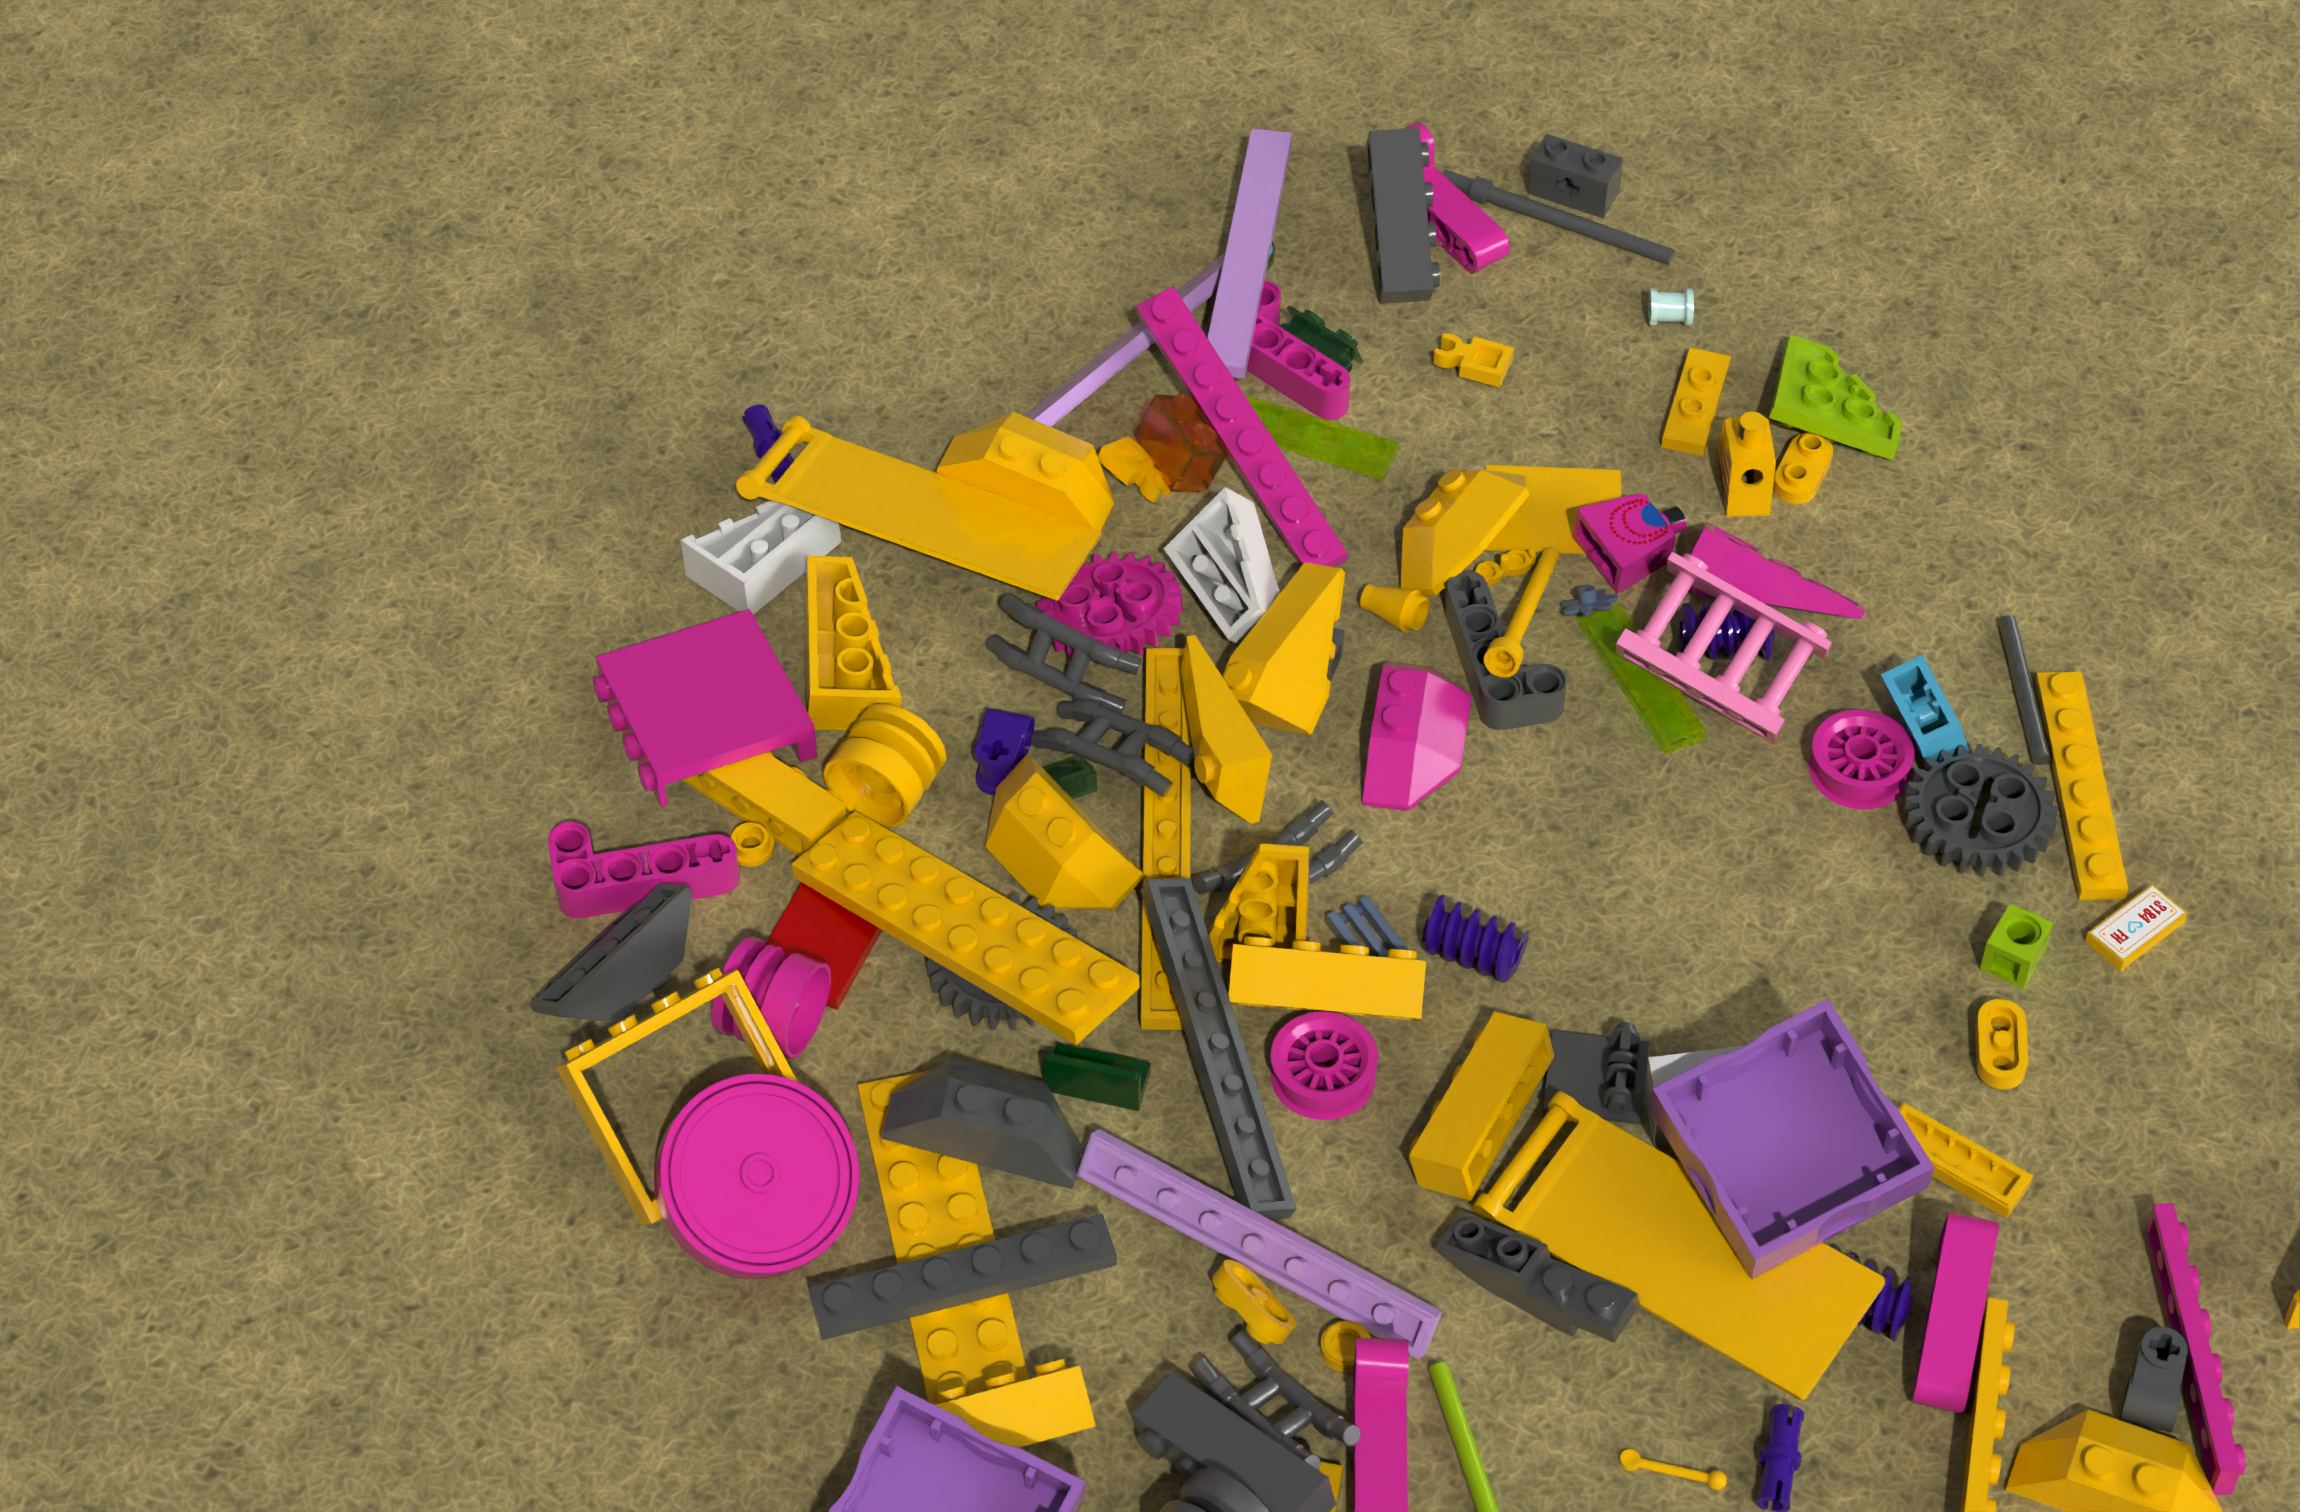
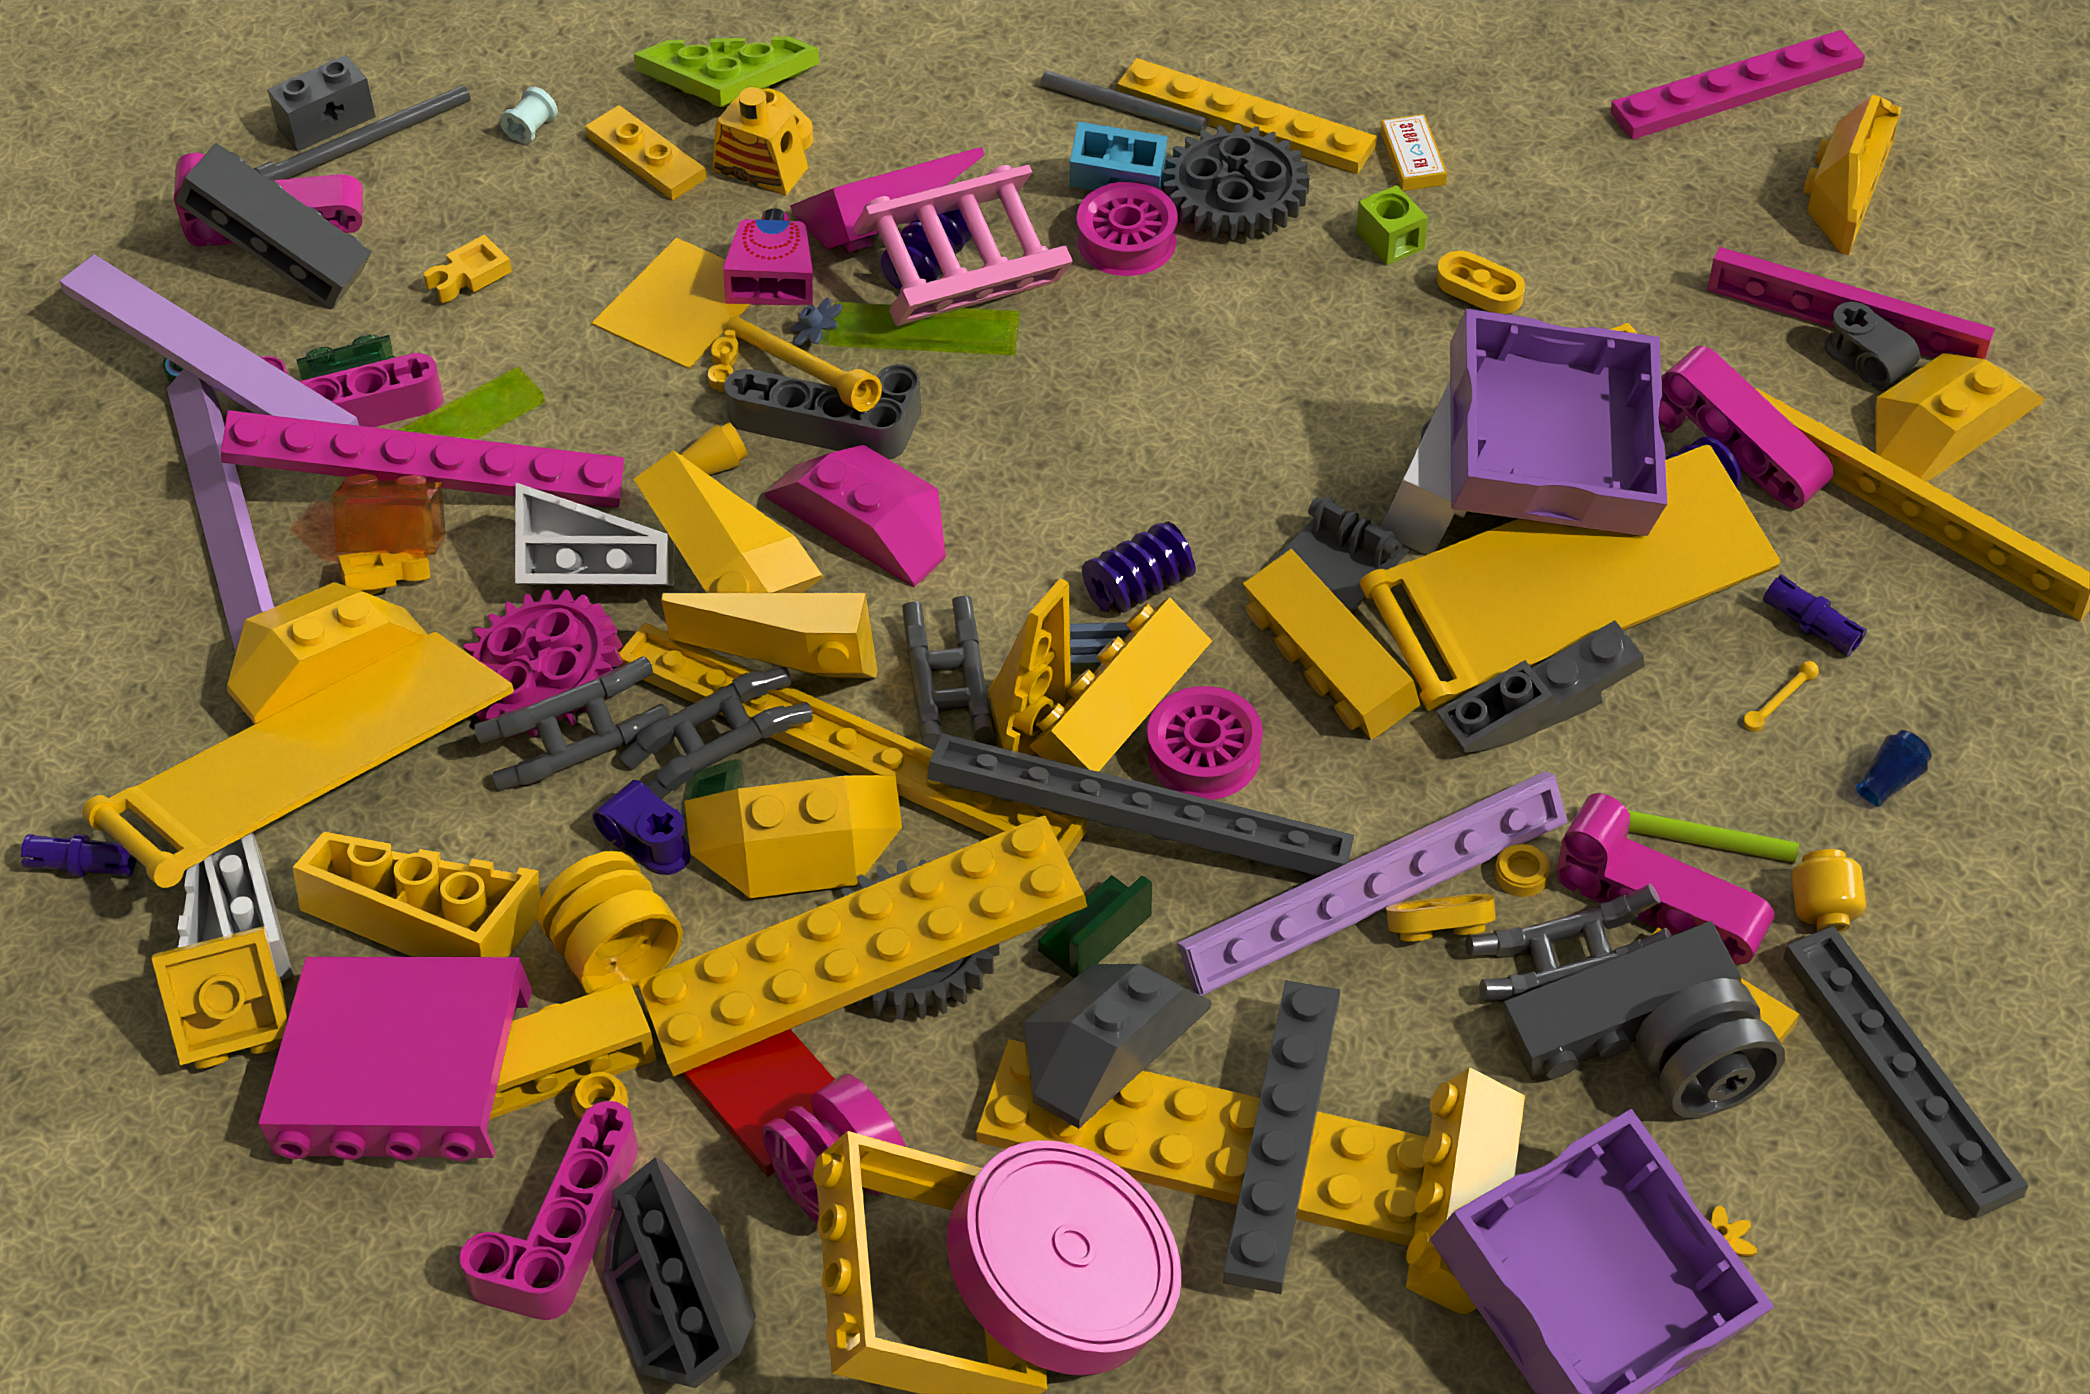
camera: 60 degrees left, 0 degrees up
(682, 578) = (222, 997): none -> yellow plate
(1457, 525) = (675, 358): yellow wedge -> none

